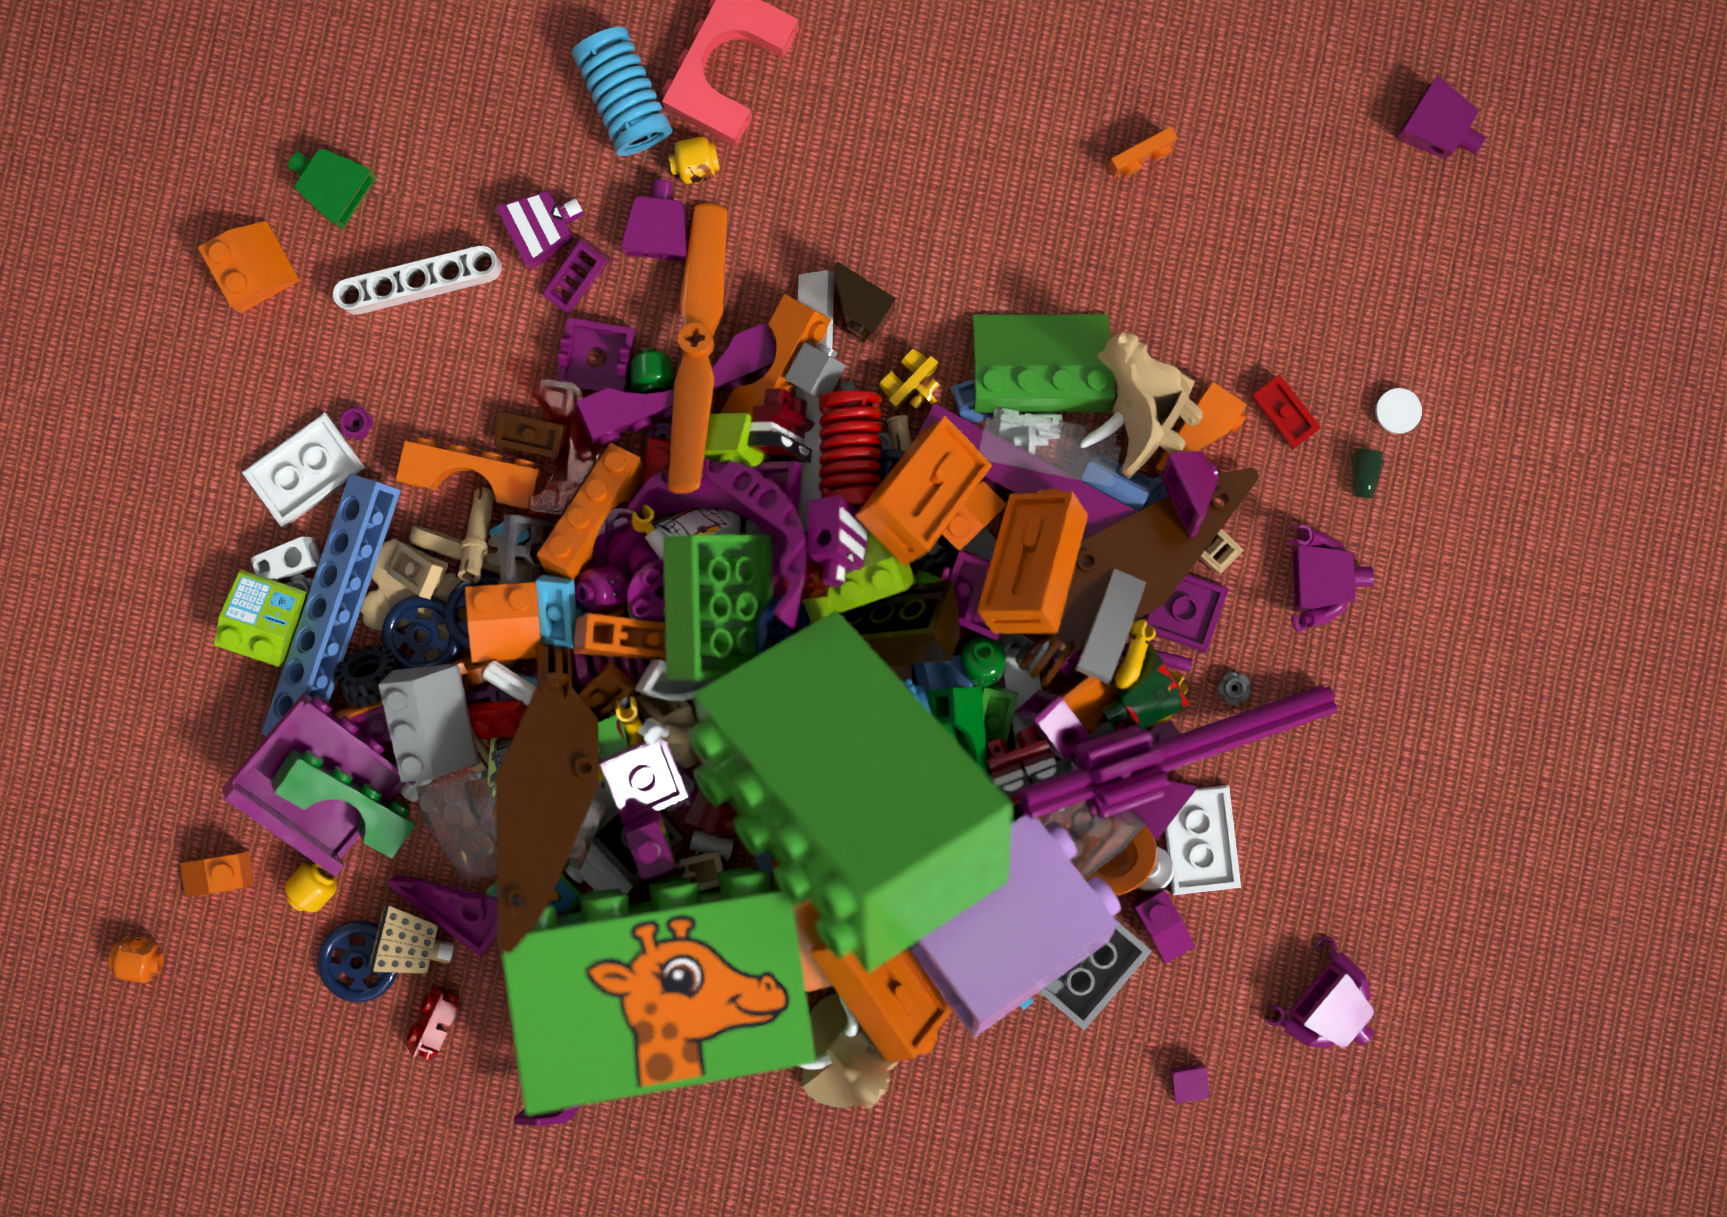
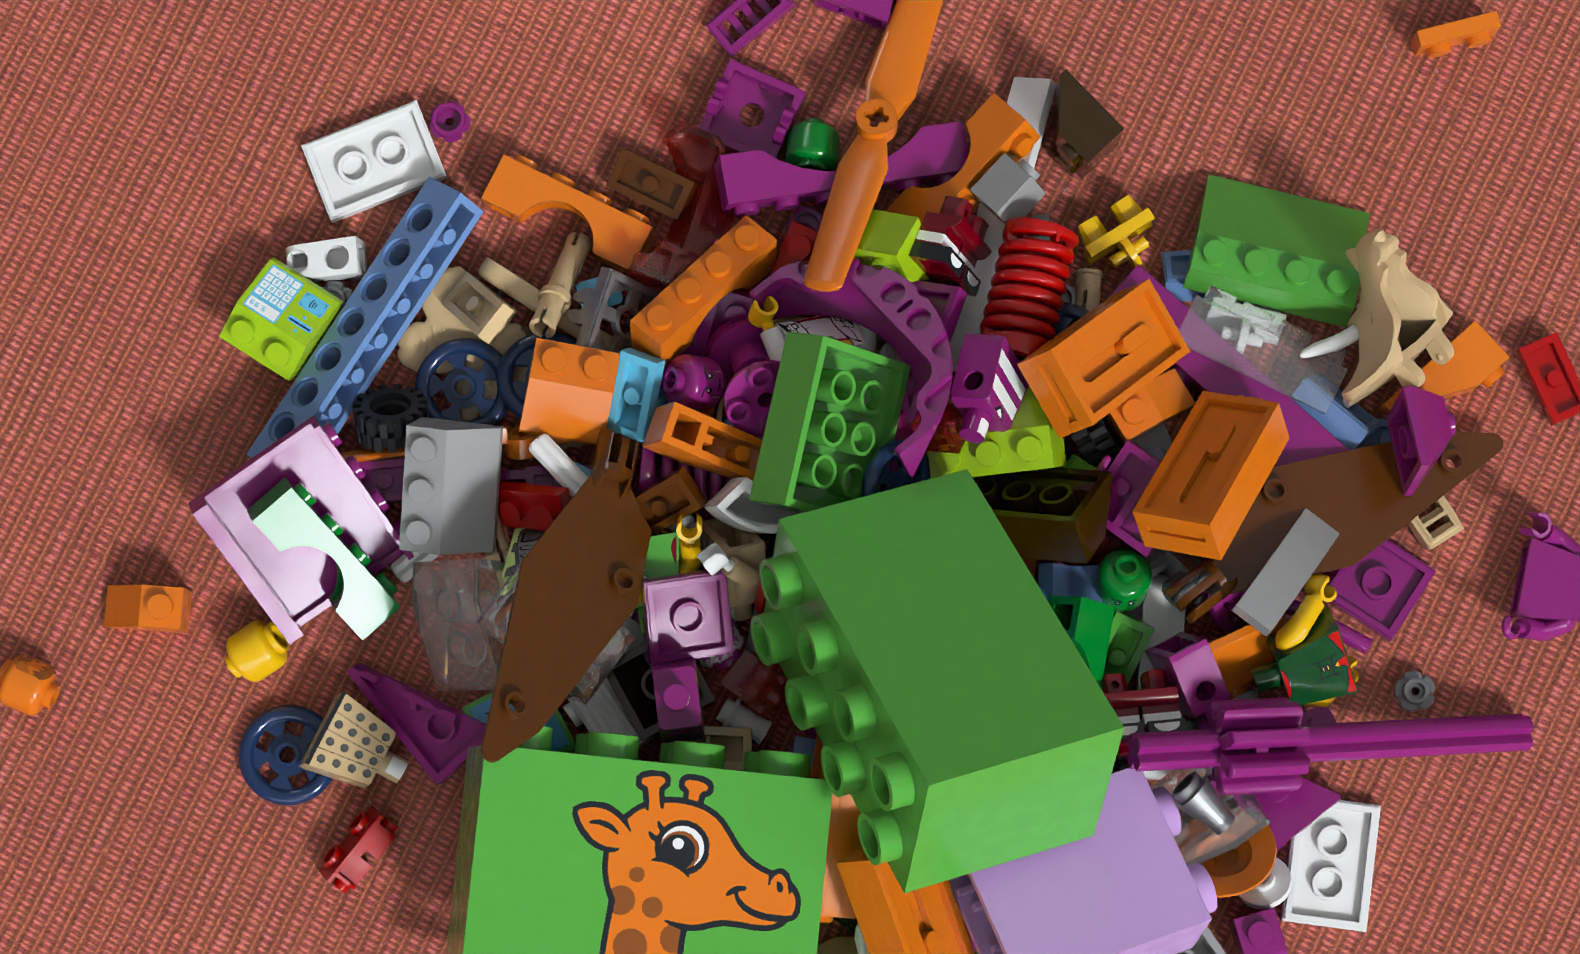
camera: 15 degrees right, 5 degrees down
(1089, 827) = (1202, 802): none -> flat silver cone

